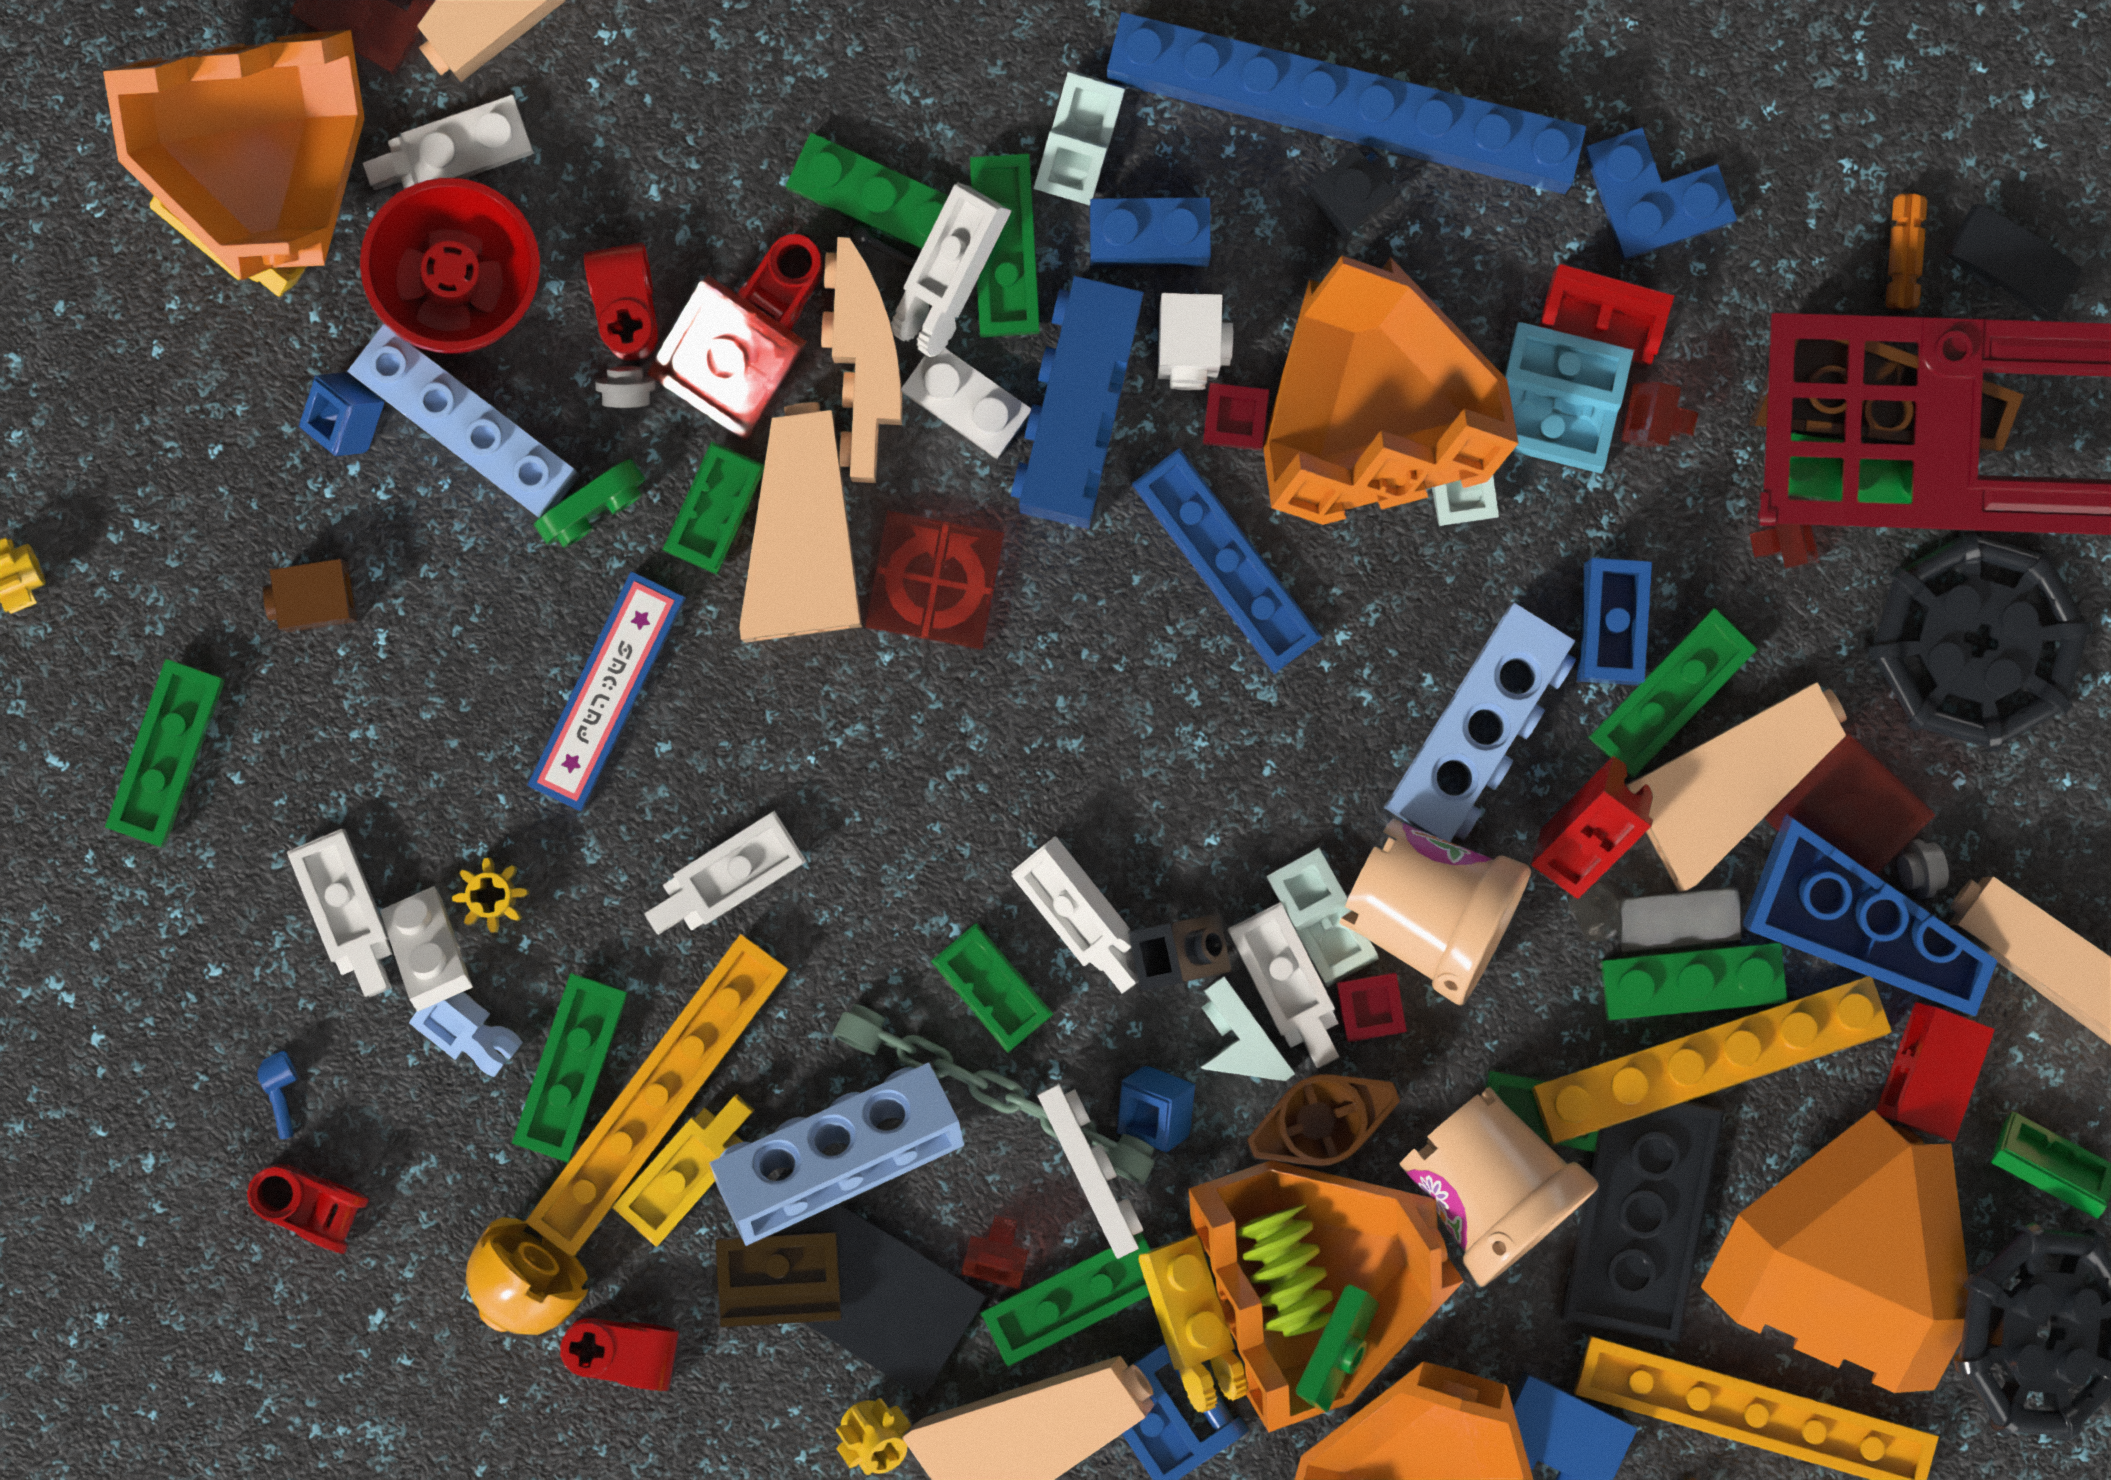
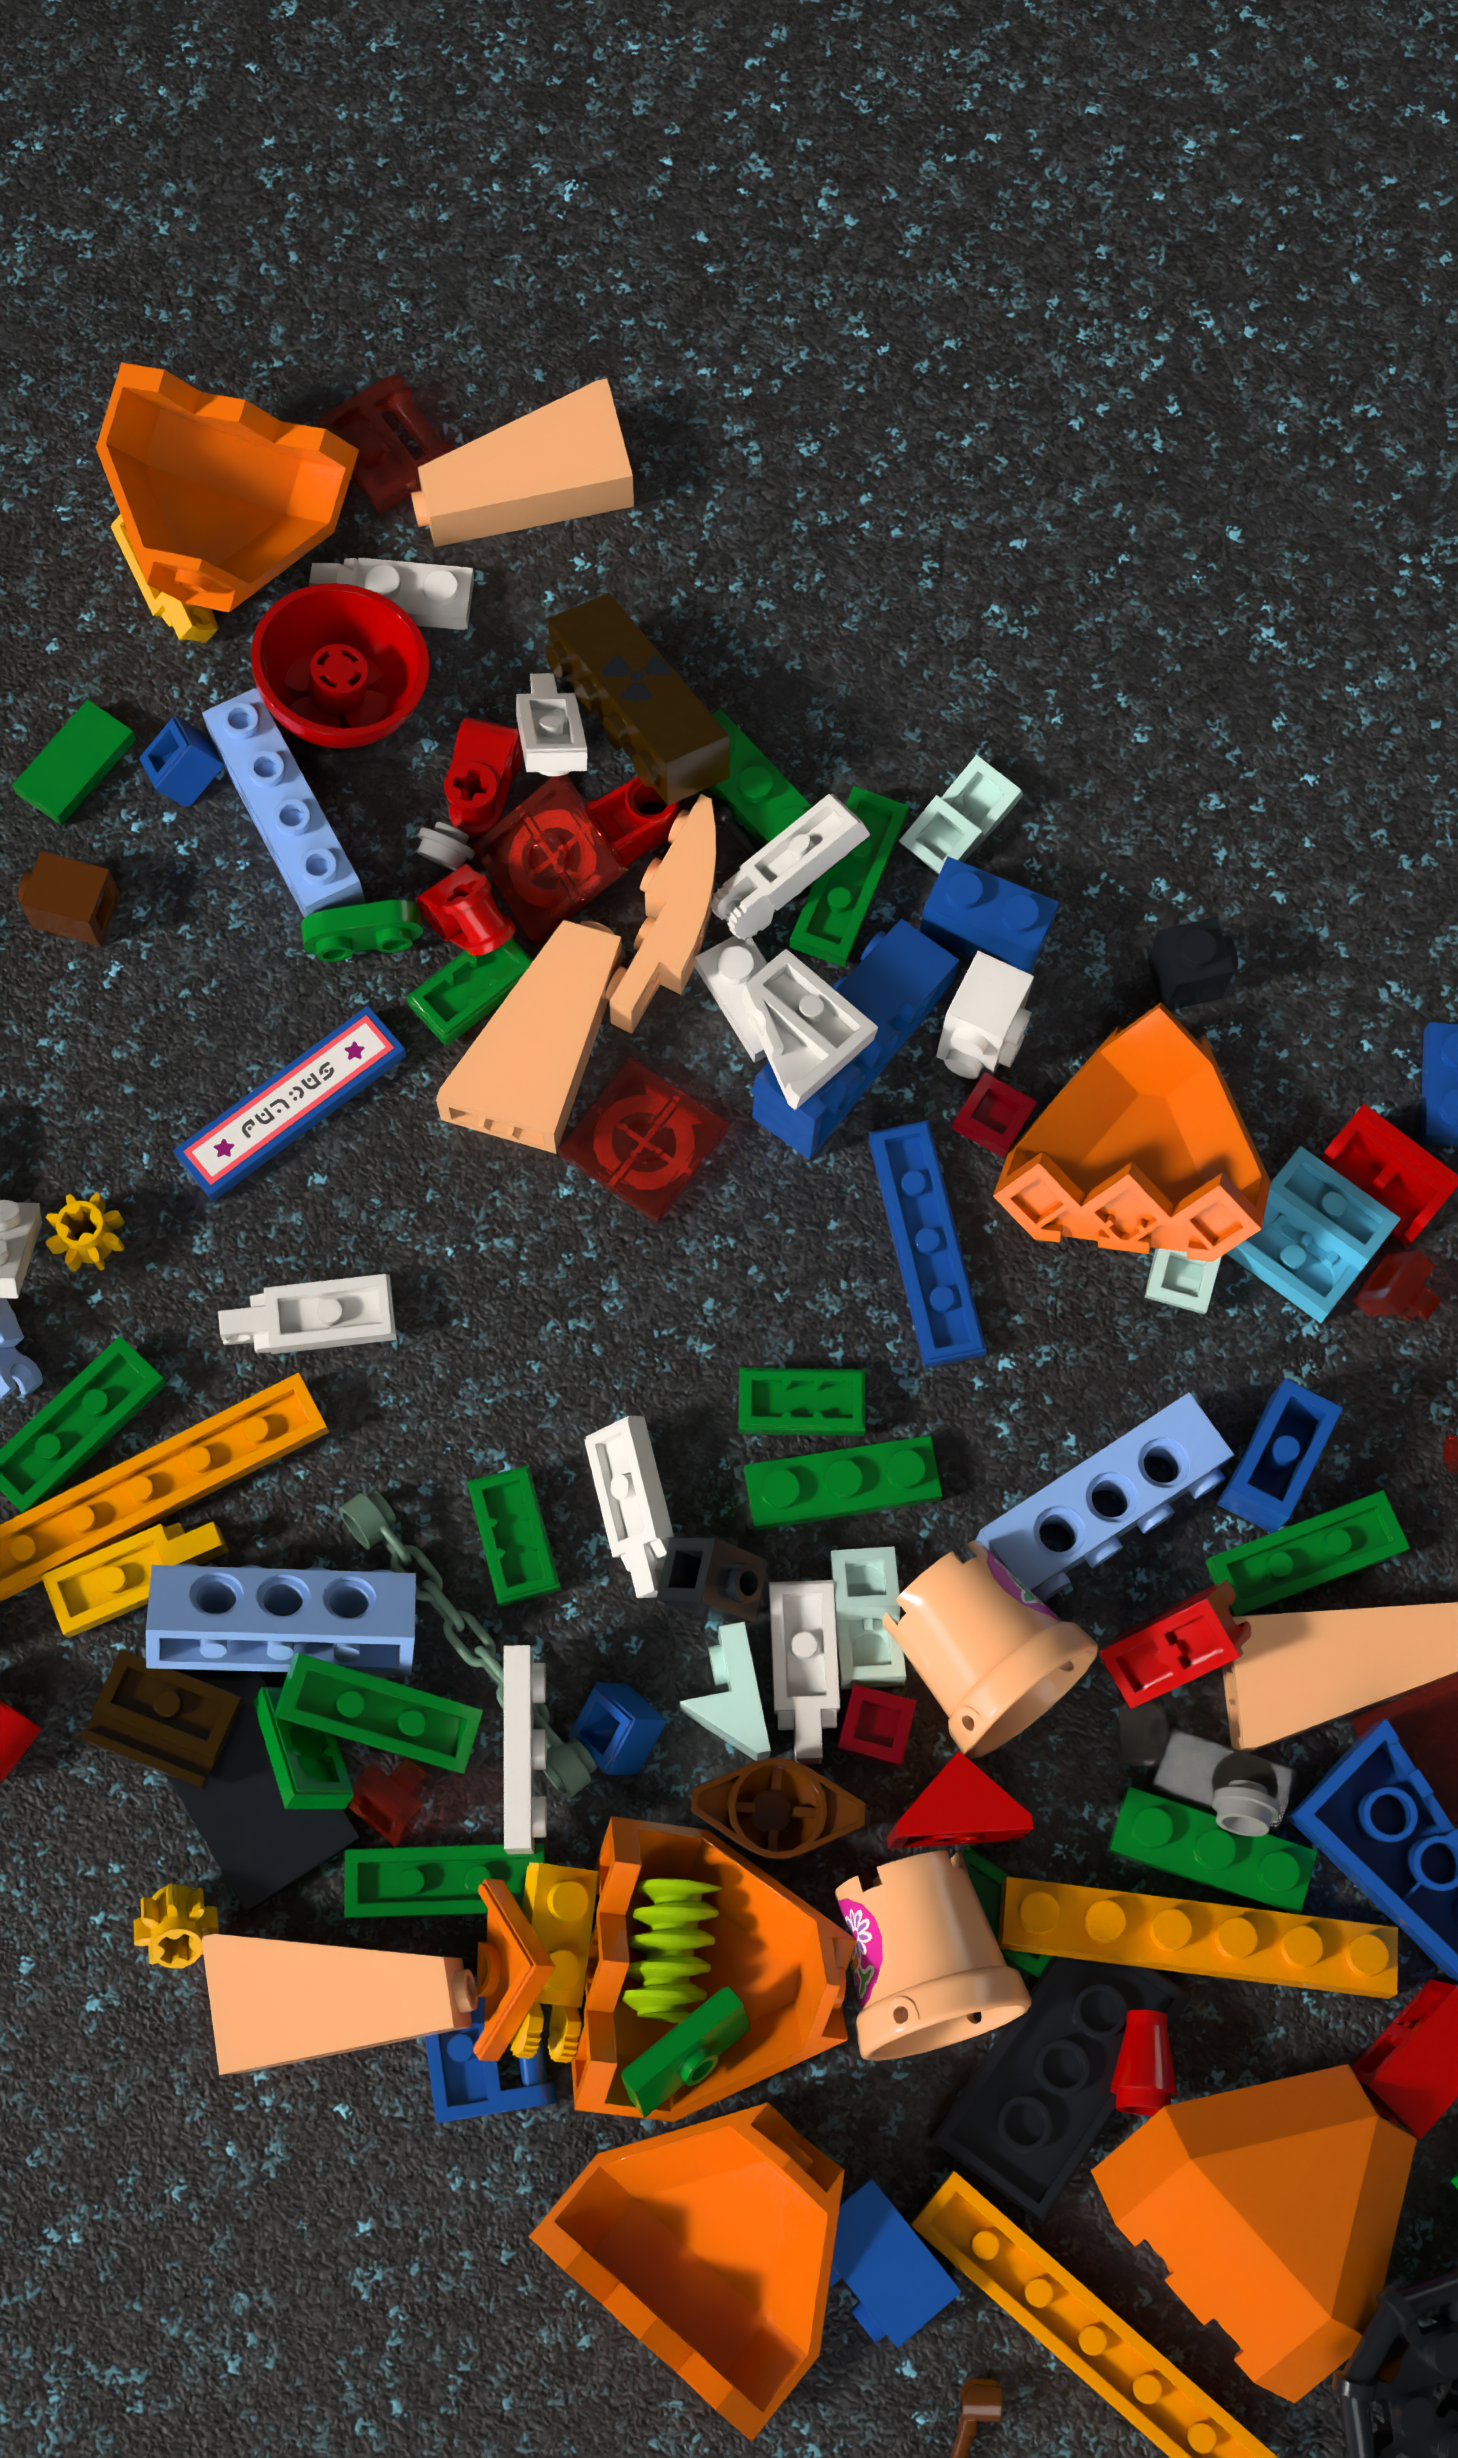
camera: 20 degrees right, 15 degrees down
(242, 458) = (74, 762): none -> green tile
(671, 237) = (550, 729): none -> white hinge
(679, 447) = (466, 912): none -> red piece
(735, 170) = (638, 699): none -> dark brown brick
(907, 1249) = (303, 1759): none -> green plate
(955, 1192) = (378, 1713): none -> green plate
(1040, 438) = (803, 1026): none -> white wing
(1164, 1347) = (509, 1969): none -> orange tile
(1183, 757) = (801, 1402): none -> green plate
(1249, 810) = (842, 1483): none -> green plate
(1345, 103) = (1213, 877): blue brick -> none
(1469, 1052) = (961, 1809): none -> red slope
(1706, 939) = (1245, 1808): none -> light grey plate
(1709, 1185) = (1144, 2068): none -> red cone

